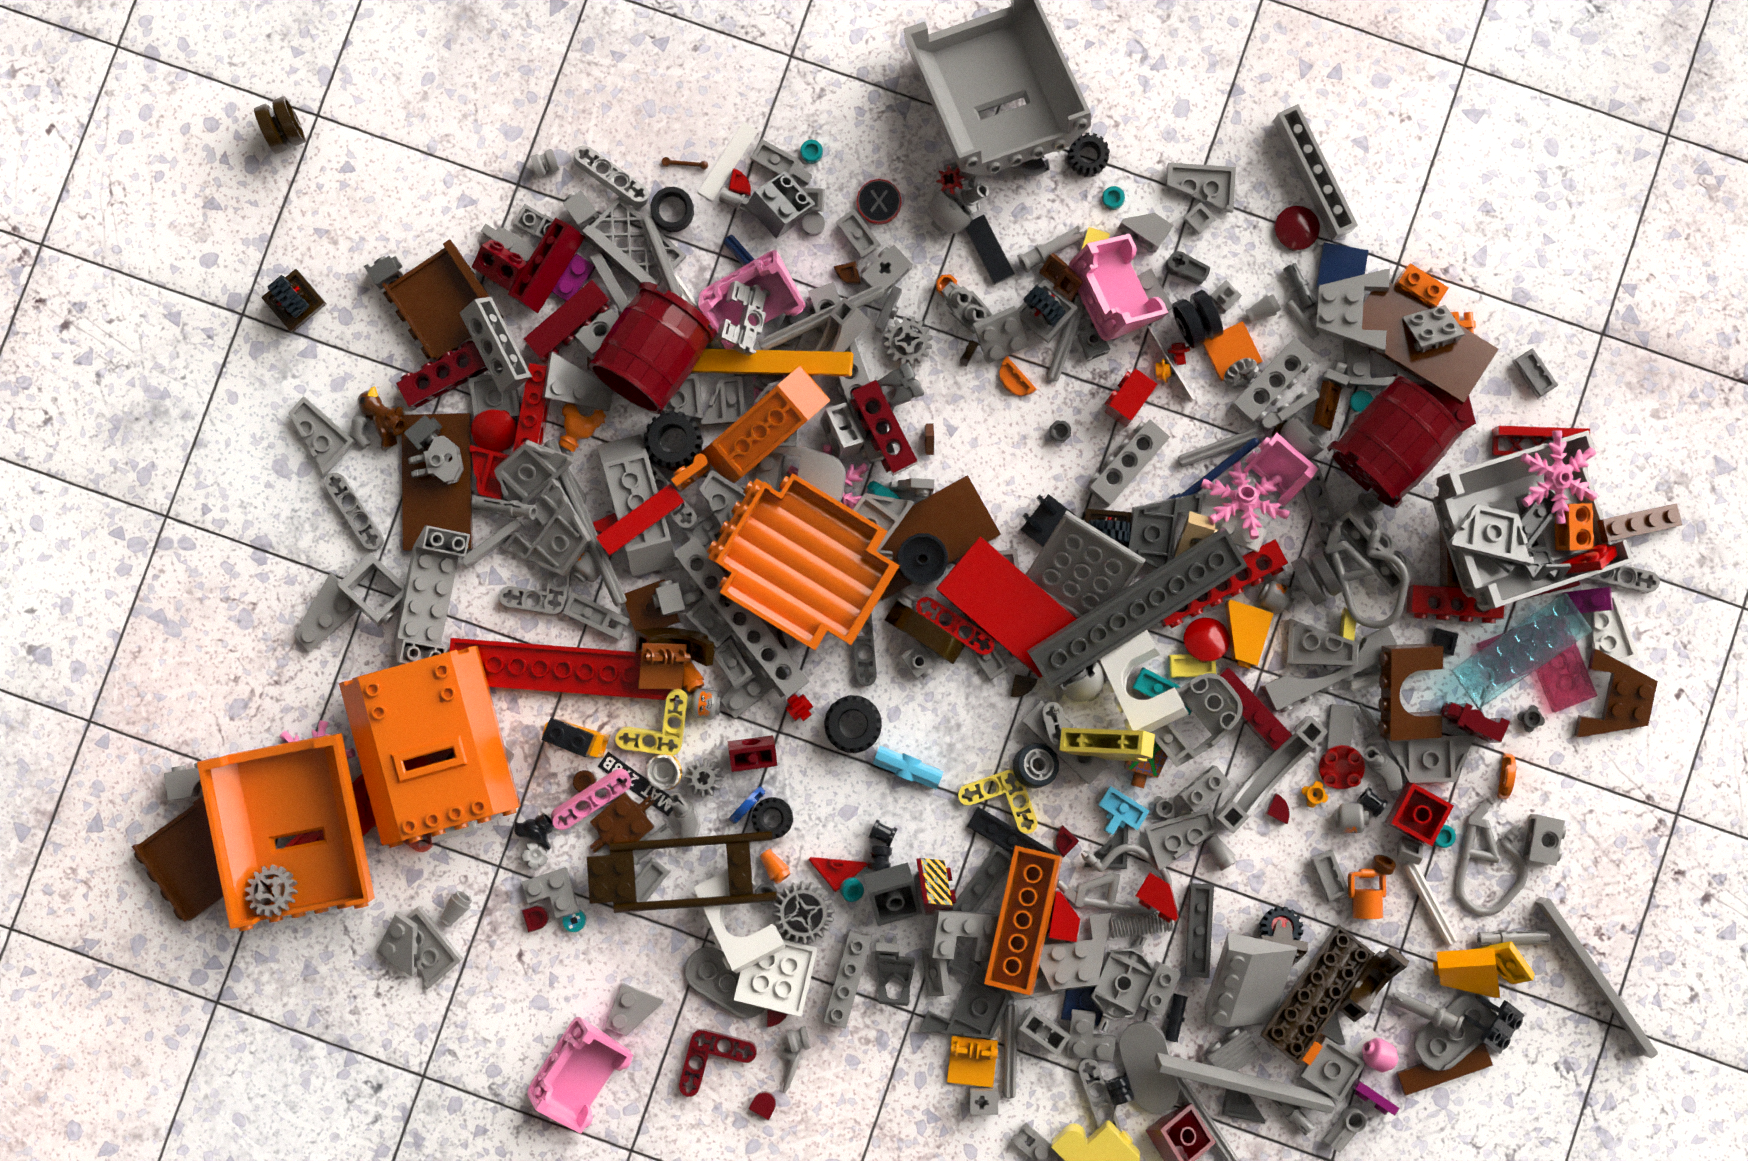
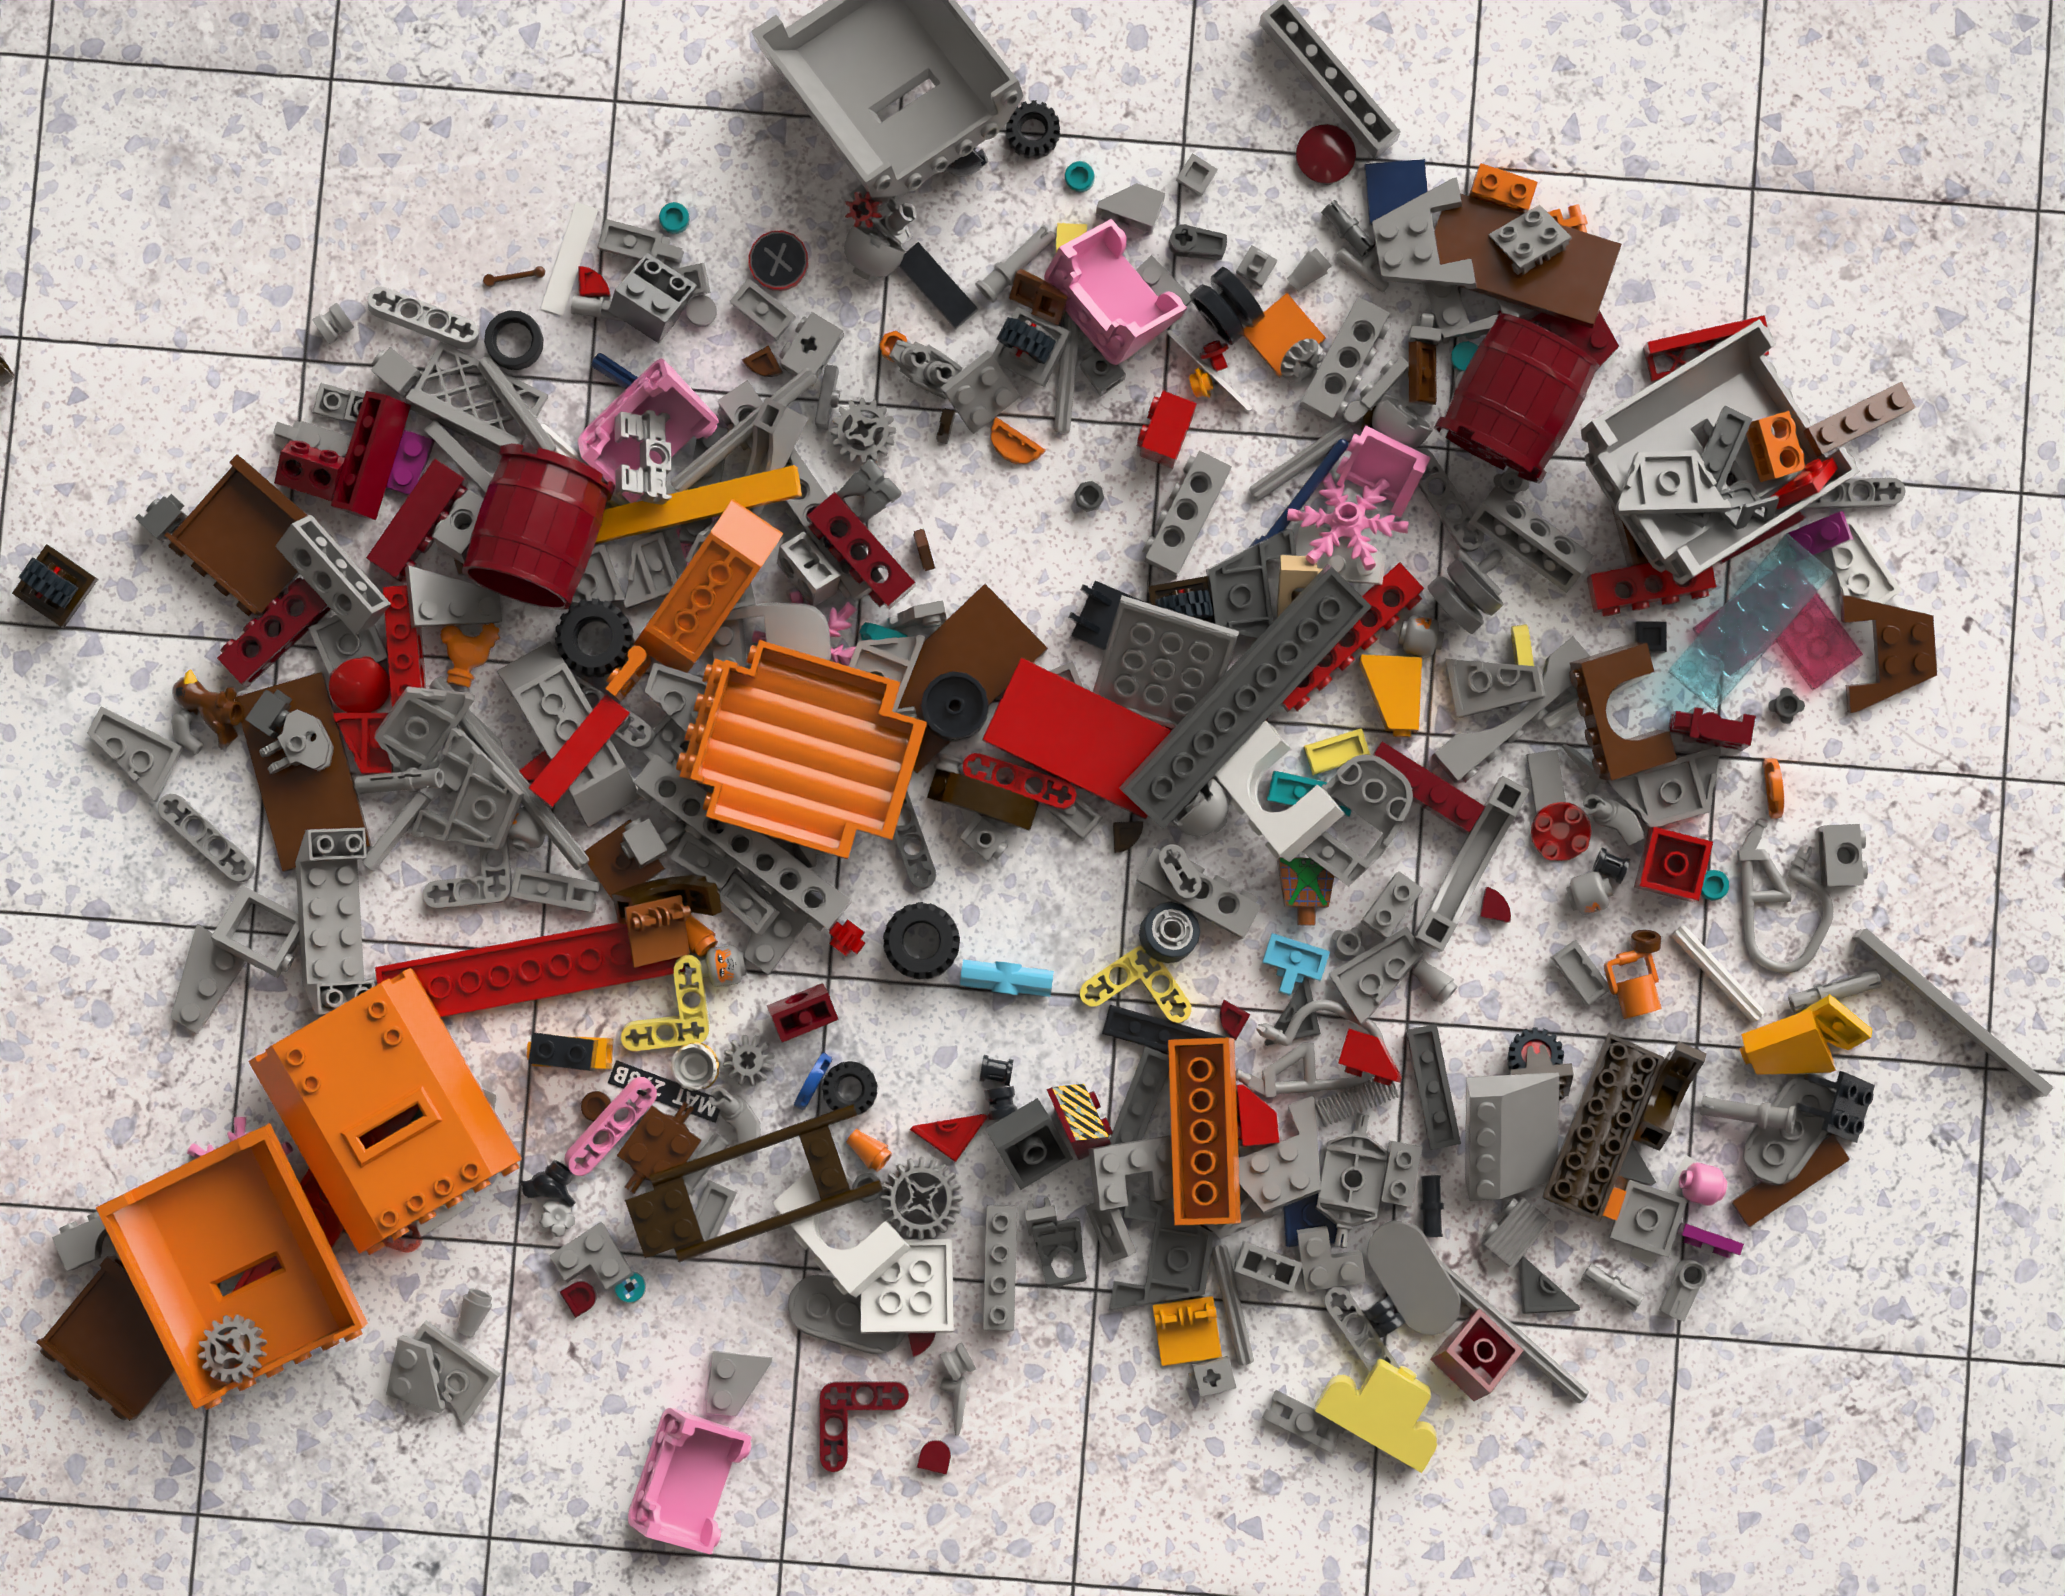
camera: 15 degrees left, 0 degrees up
(851, 889) = (975, 1153): teal tile -> none
(1108, 743) = (1252, 878): light yellow brick -> none
(1204, 182) = (1191, 127): light grey wing -> none
(1206, 639) = (1346, 713): red dish -> none
(1244, 1083) = (1537, 1264): light grey tile -> none
(1308, 792) = (1526, 874): light orange plate -> none
(1333, 548) = (1477, 553): light grey piece -> none
(1410, 850) = (1674, 914): light grey plate -> none
(1535, 373) = (1678, 261): flat silver plate -> none
(1558, 477) = (1735, 388): bright pink piece -> none

